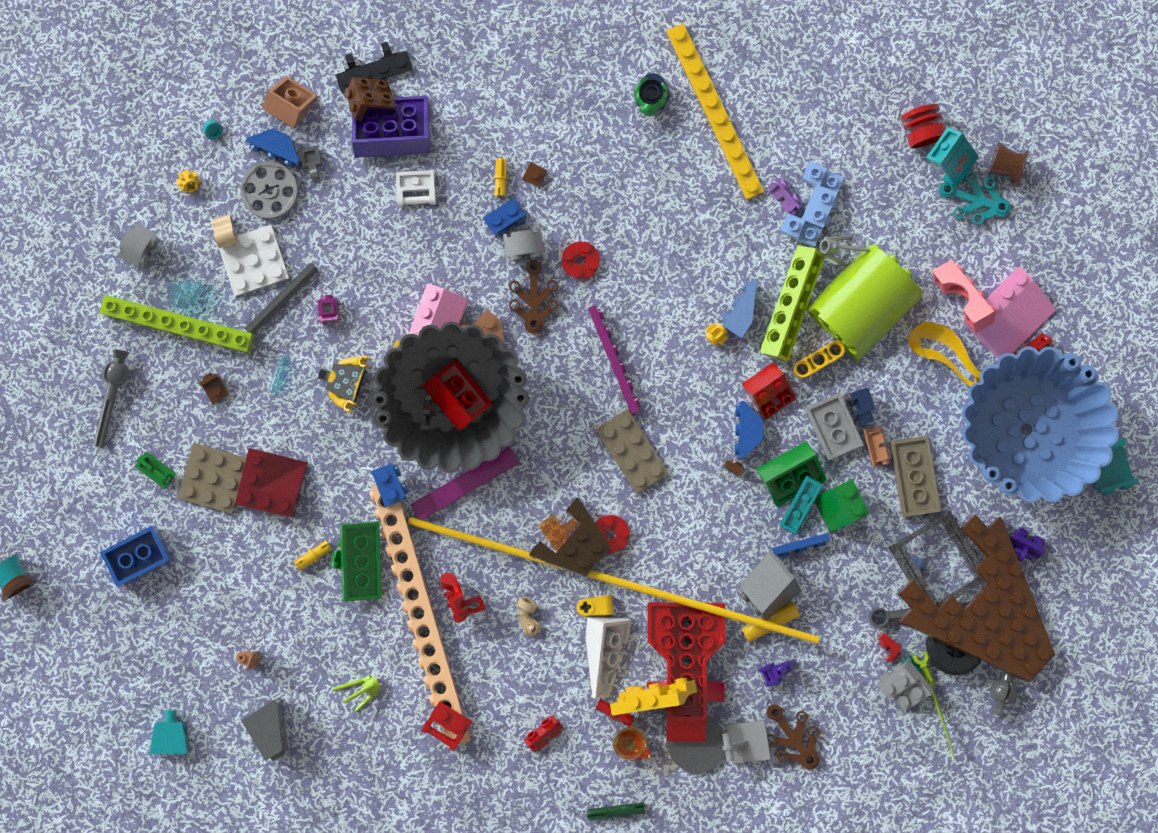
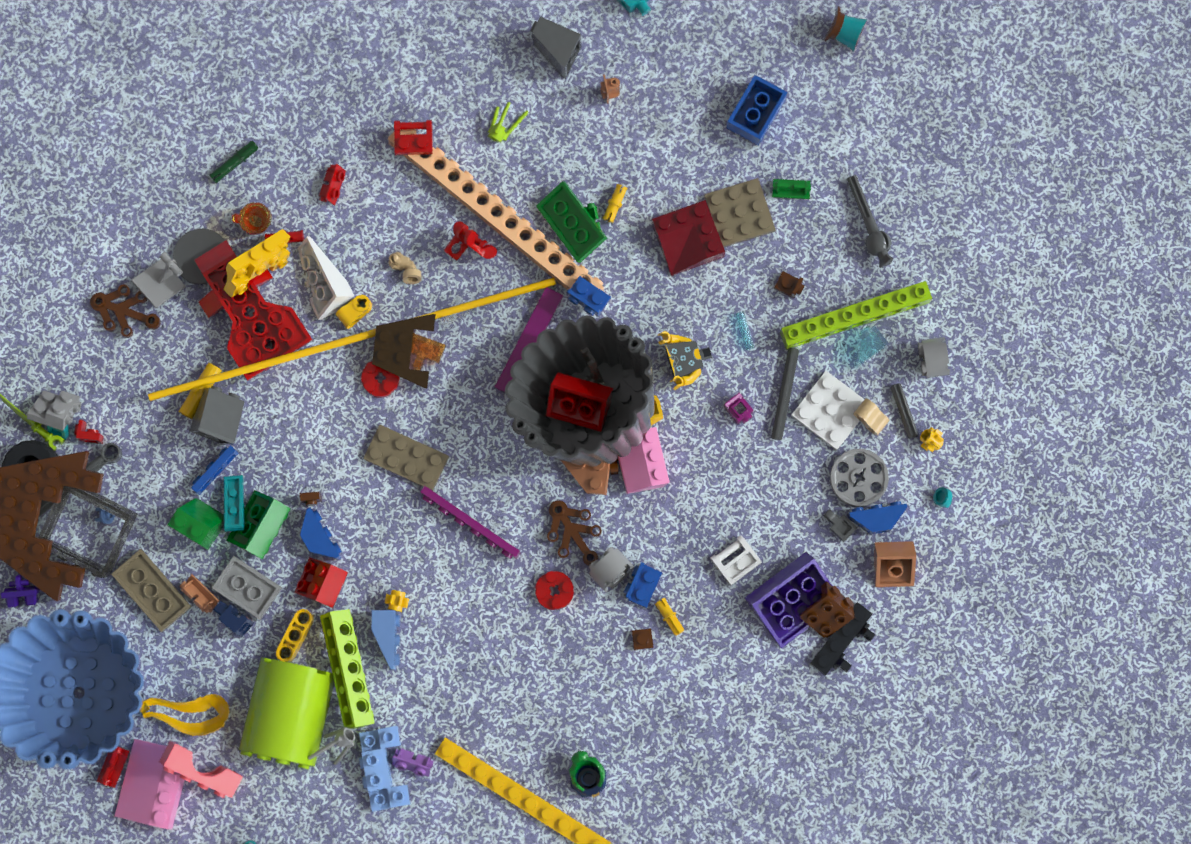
camera: 145 degrees right, 5 degrees down
(193, 221) = (904, 410): none -> dark grey axle
(772, 673) = (170, 351): dark purple piece -> none

